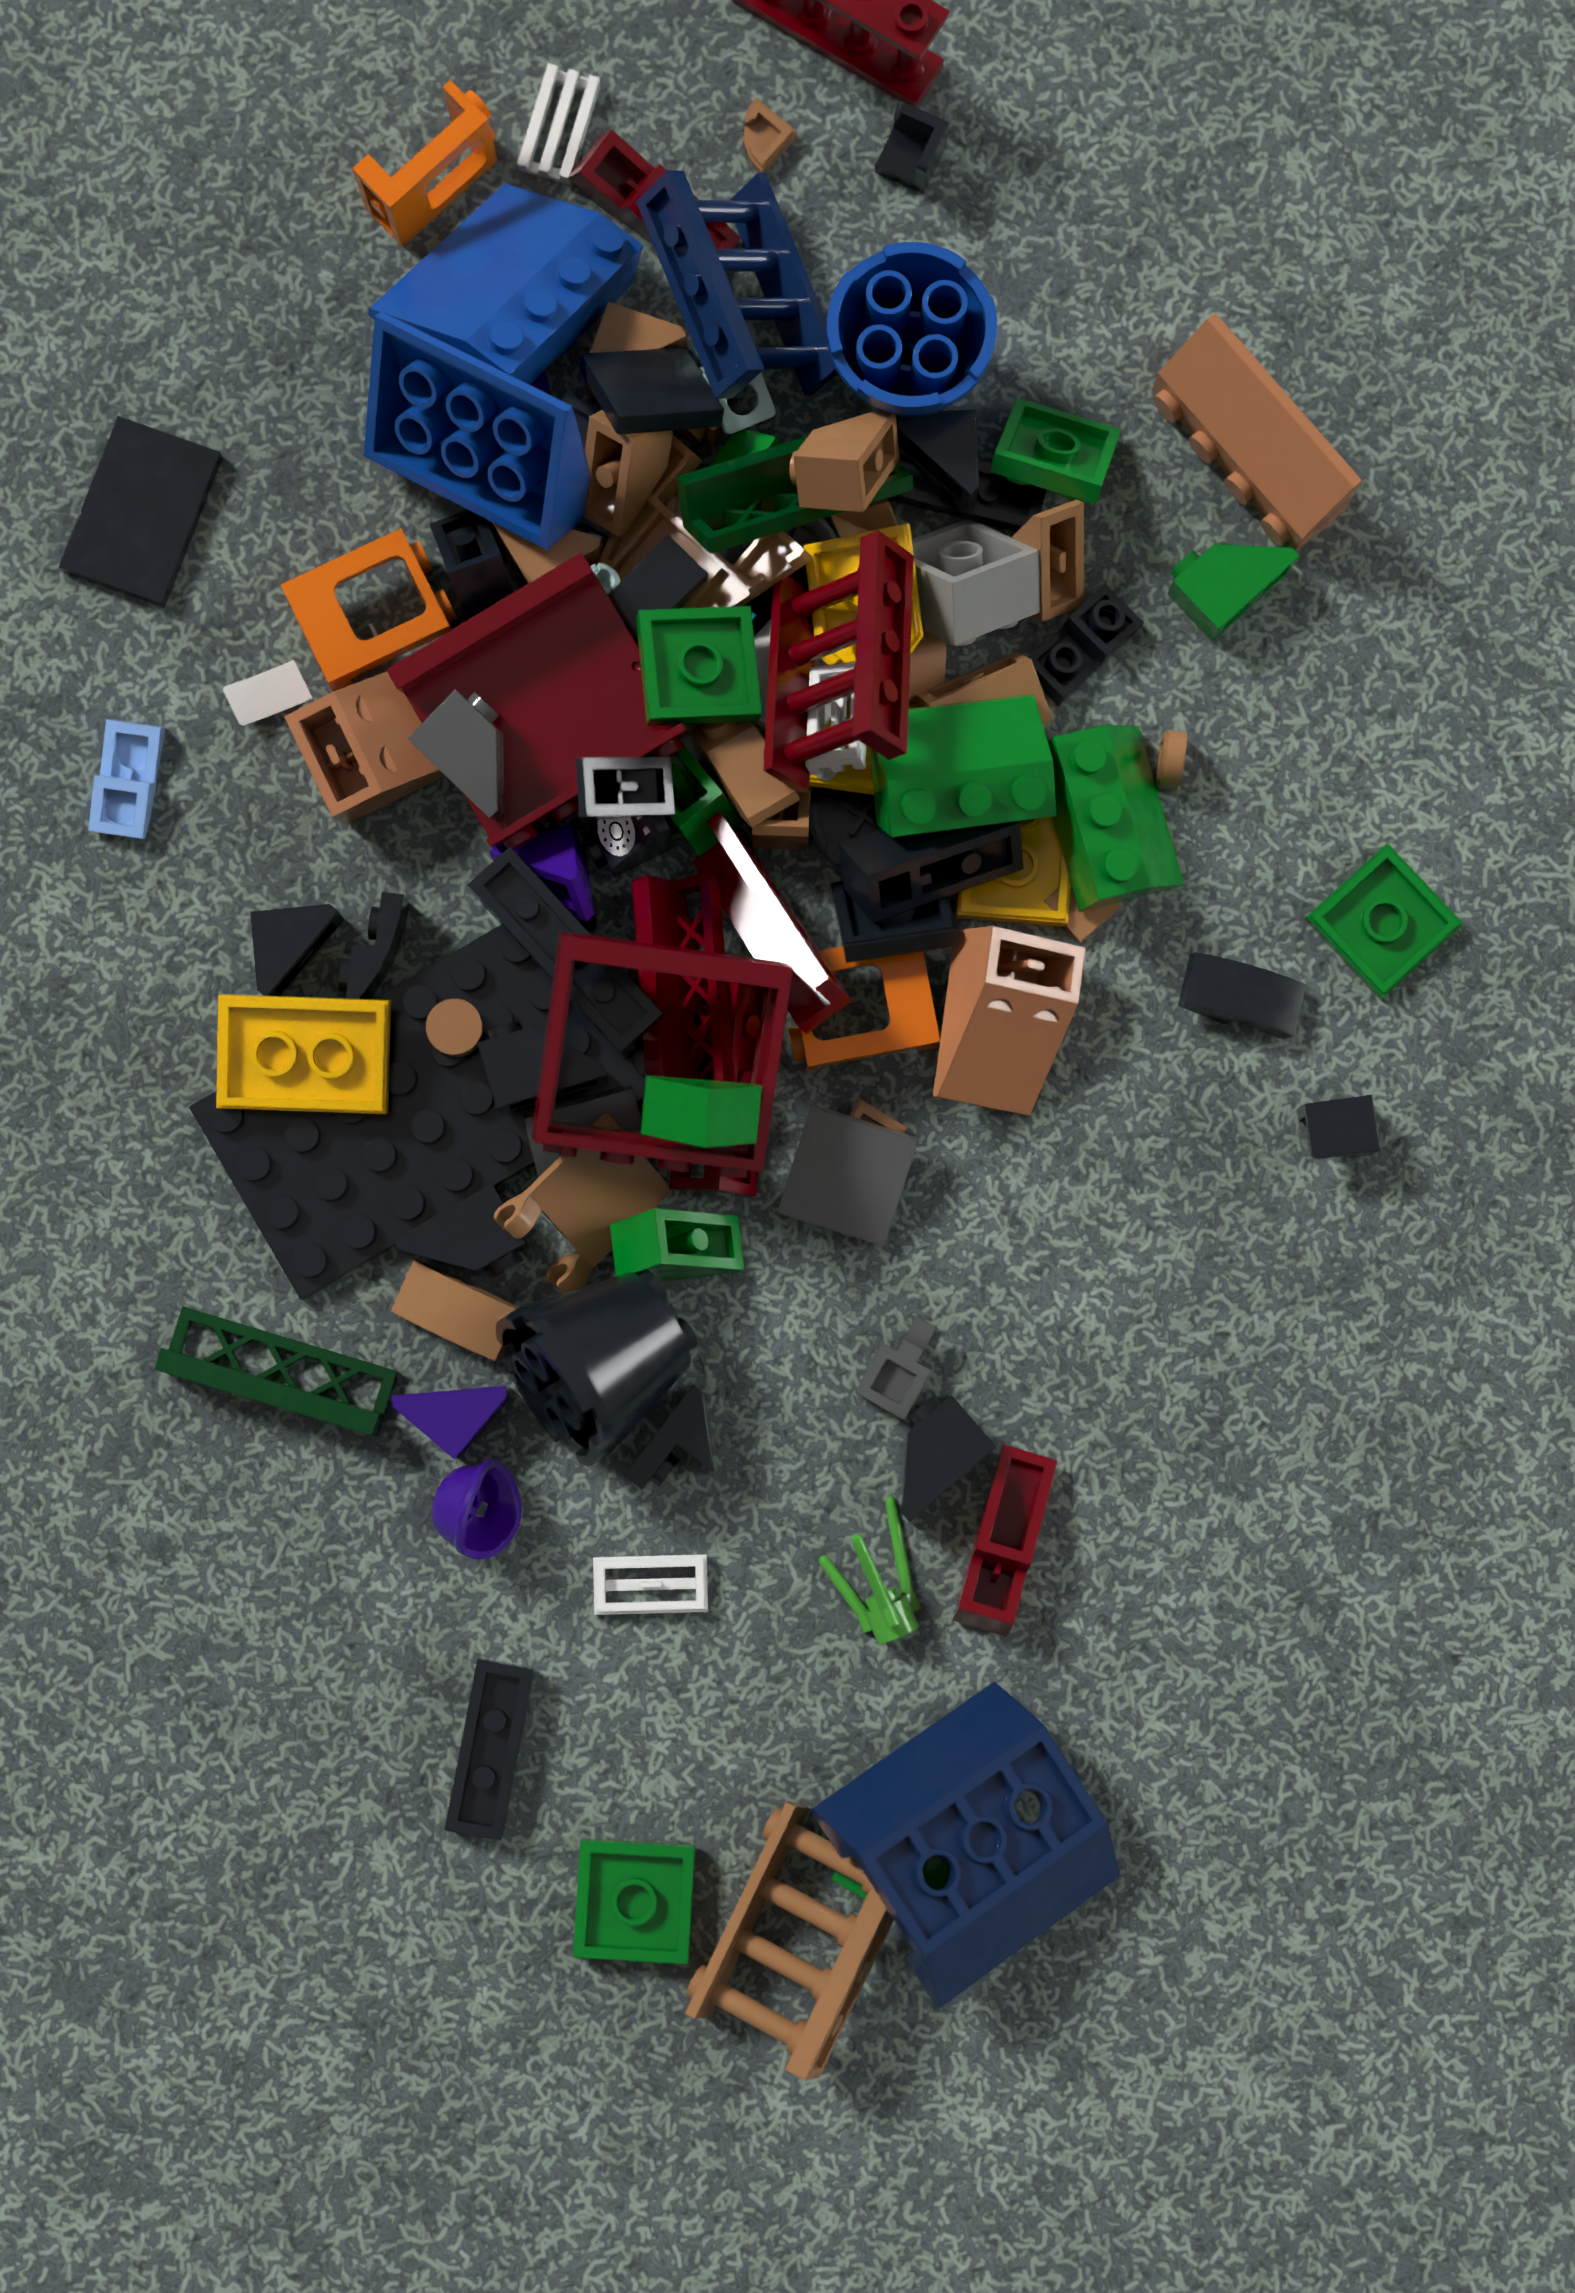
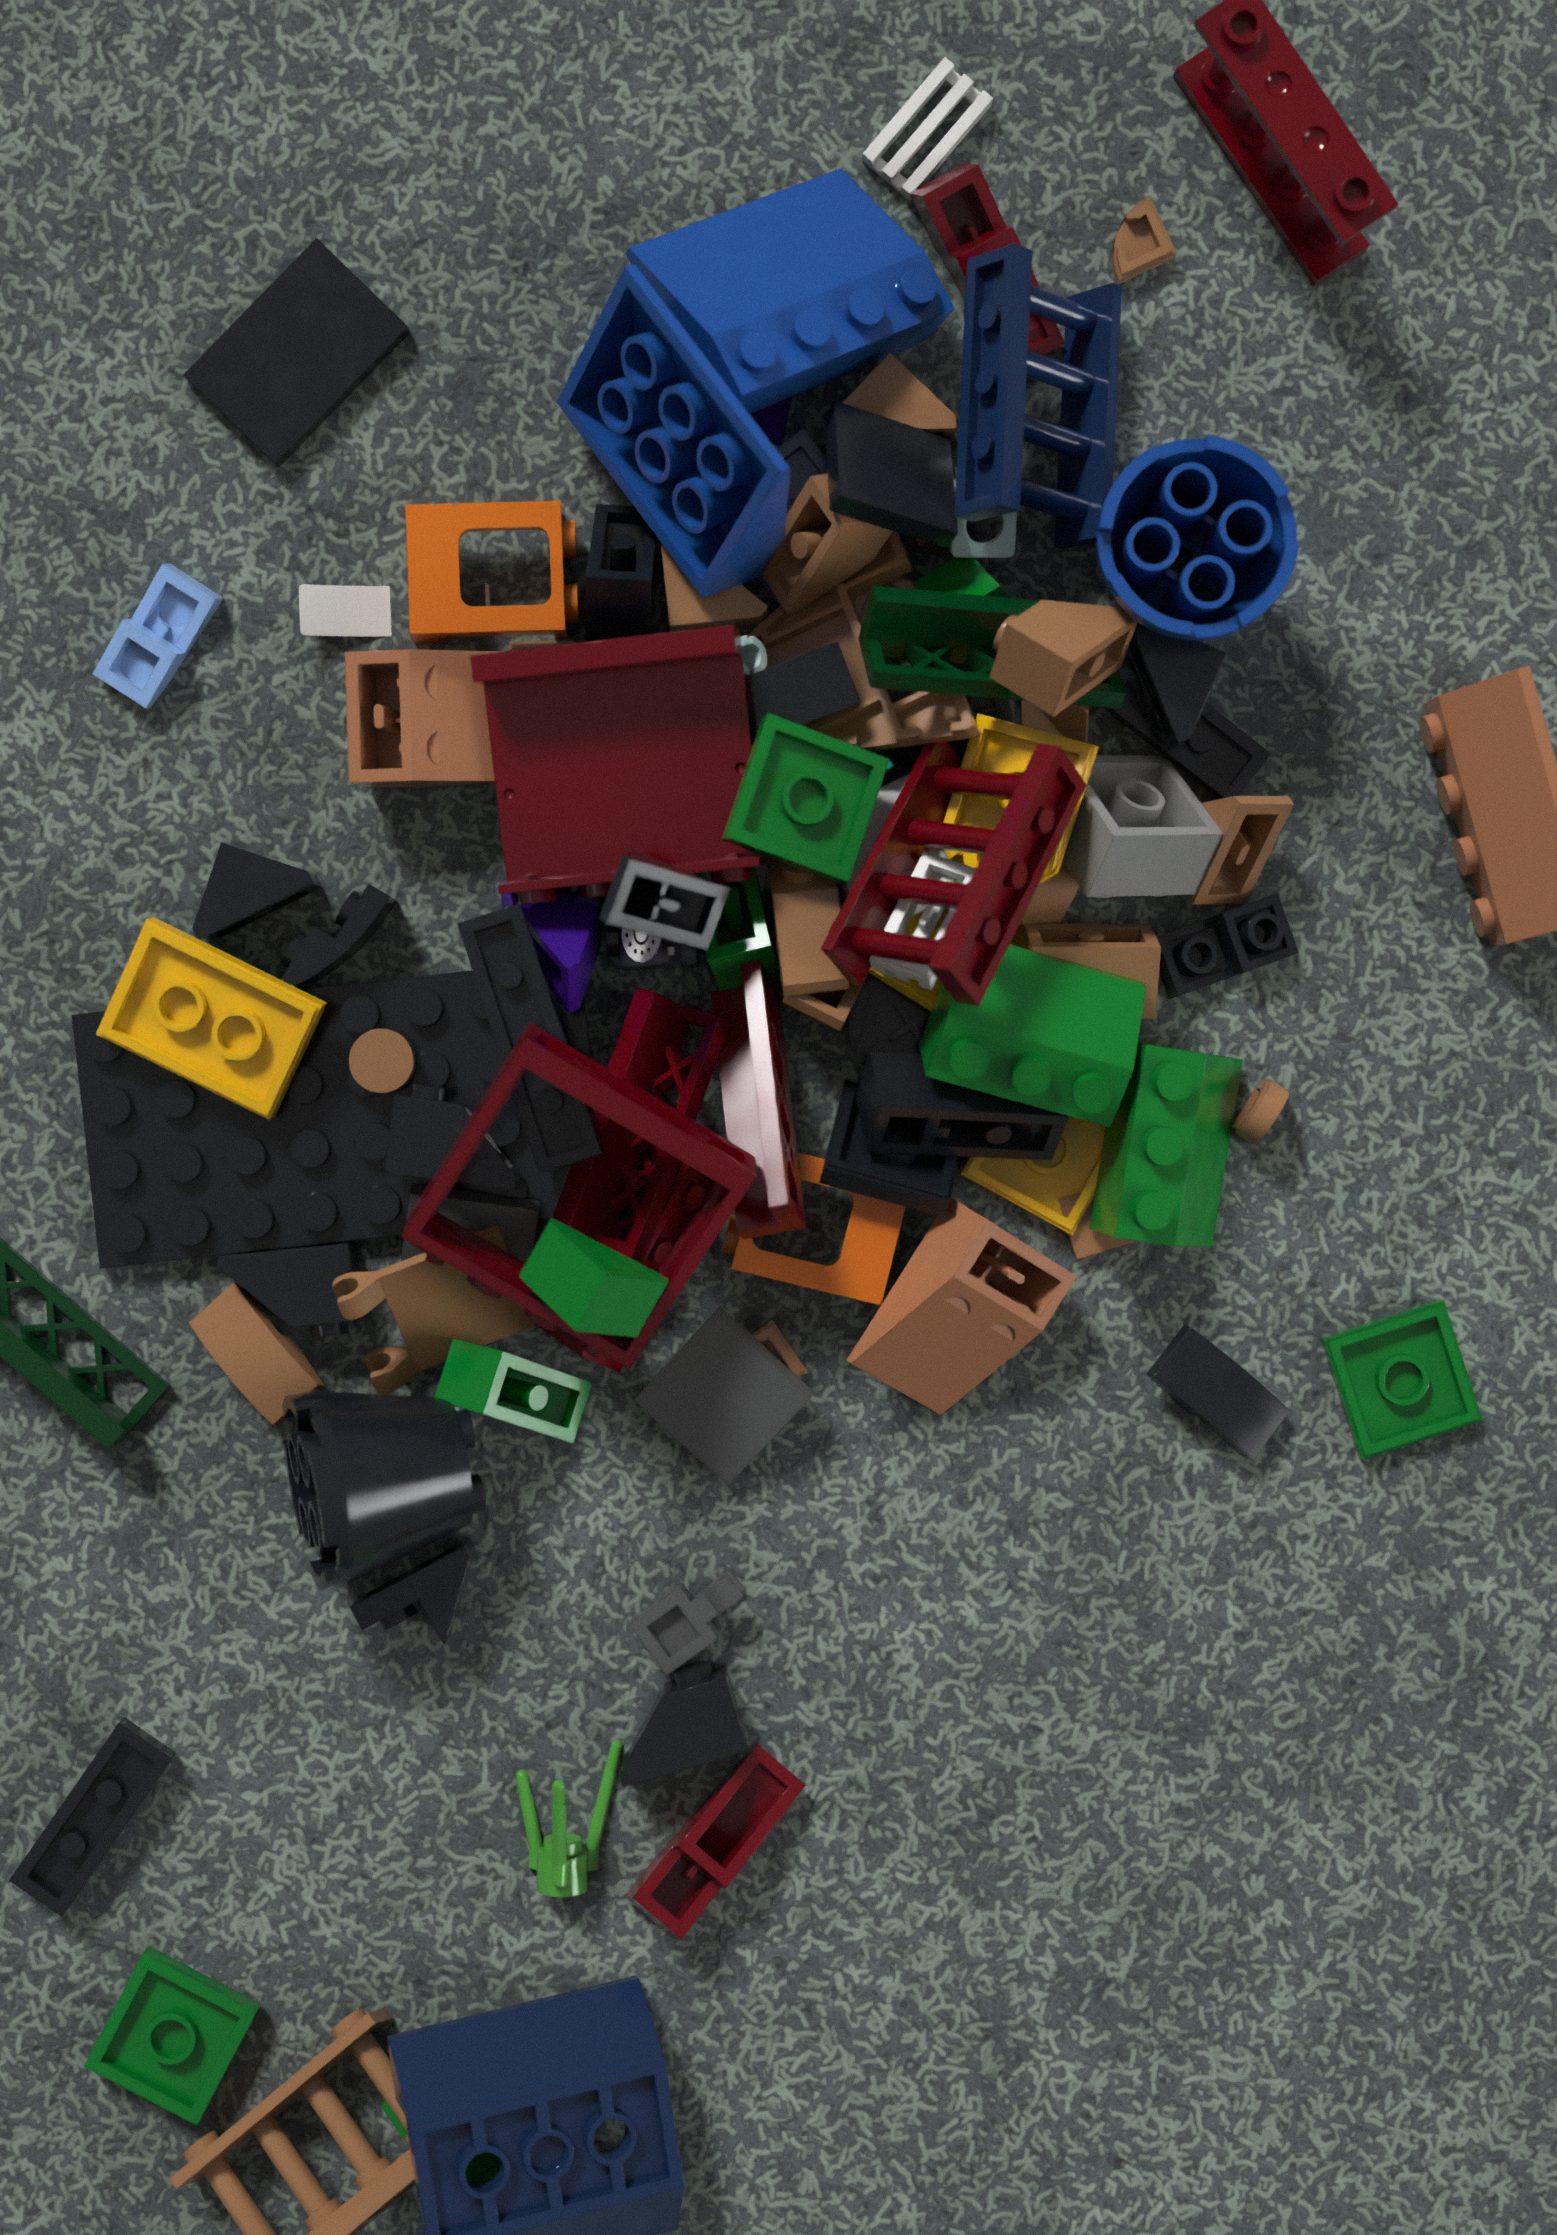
camera: 20 degrees right, 5 degrees up
(402, 200) = (720, 141): orange window -> none
(454, 1416) = (201, 1460): dark purple slope -> none
(461, 1496) = (162, 1574): dark purple helmet -> none
(467, 749) = (520, 779): dark grey slope -> none
(699, 1583) = (343, 1699): white tile -> none
(913, 147) = (1291, 328): black panel -> none
(1055, 451) = (1291, 730): green plate -> none
(1227, 582) = (1404, 951): green slope -> none
(1341, 1127) = (1255, 1578): black panel -> none

